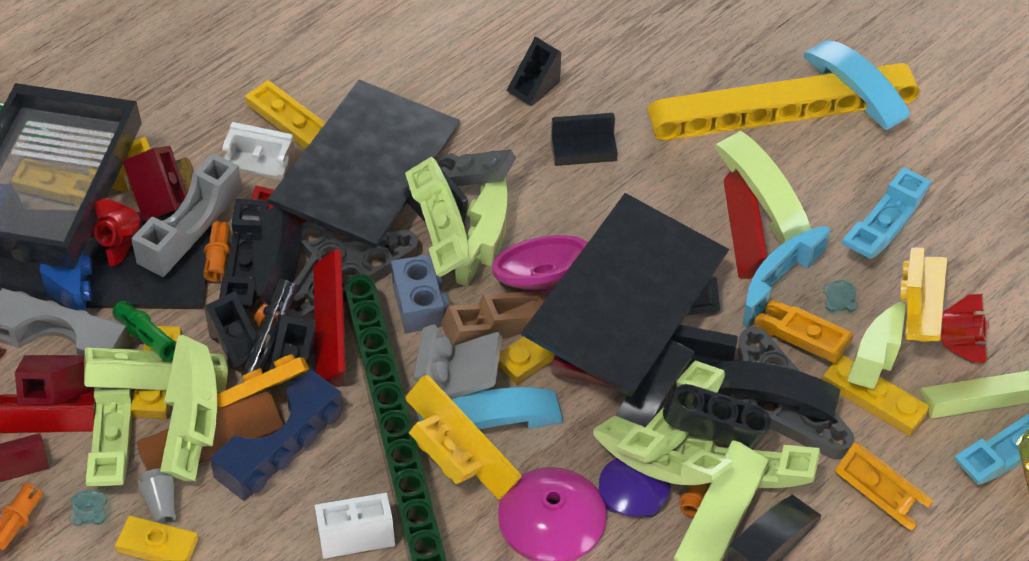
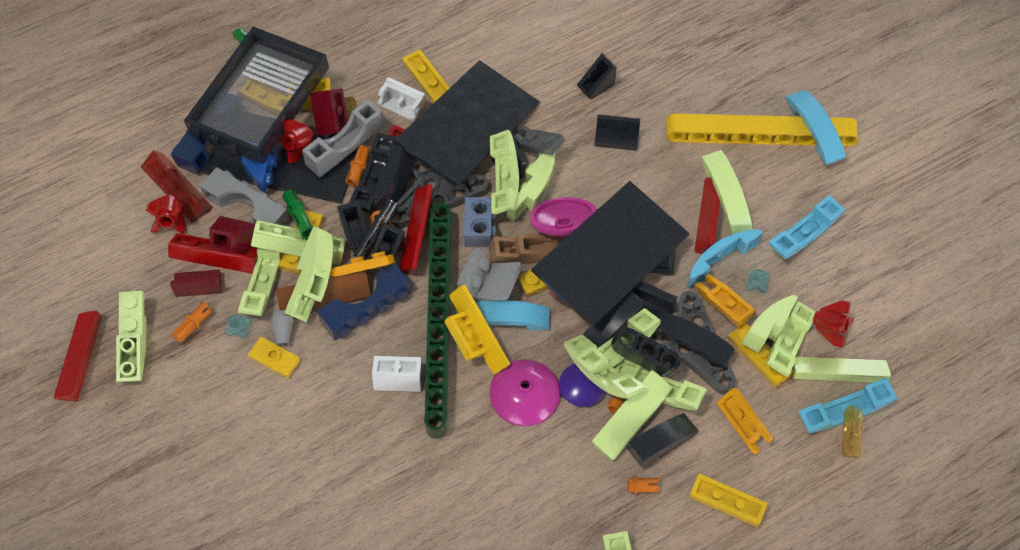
camera: 15 degrees right, 10 degrees up
(910, 371) = (789, 339): none -> yellowish green slope
(924, 291) = (812, 292): yellow bracket -> none

